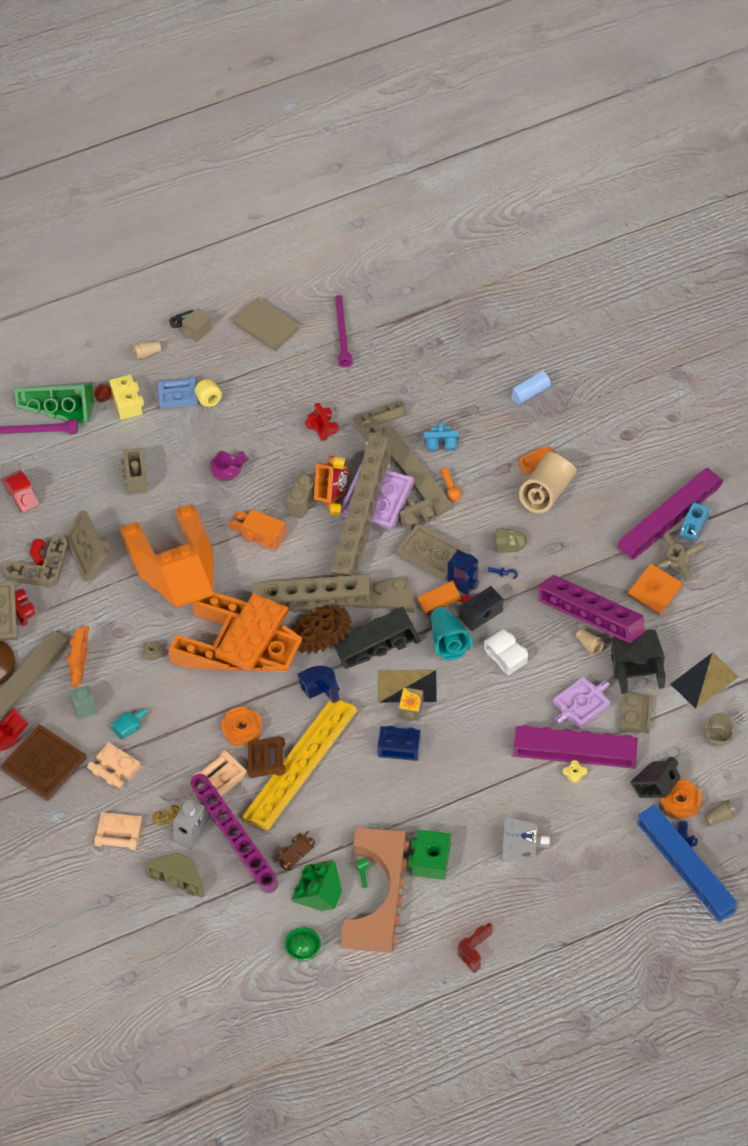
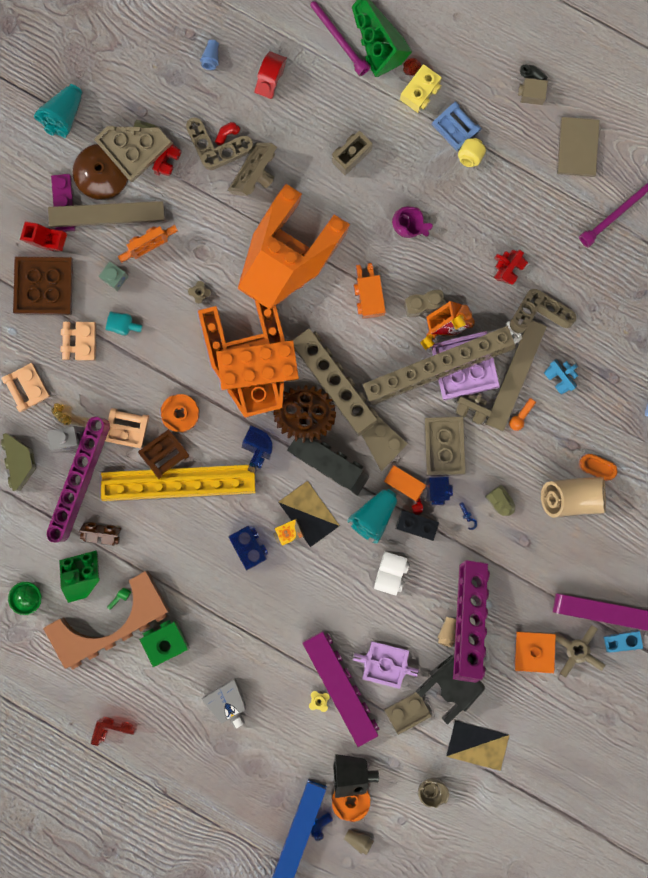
camera: 55 degrees right, 30 degrees up
(145, 349) = (480, 68): tan cone -> none

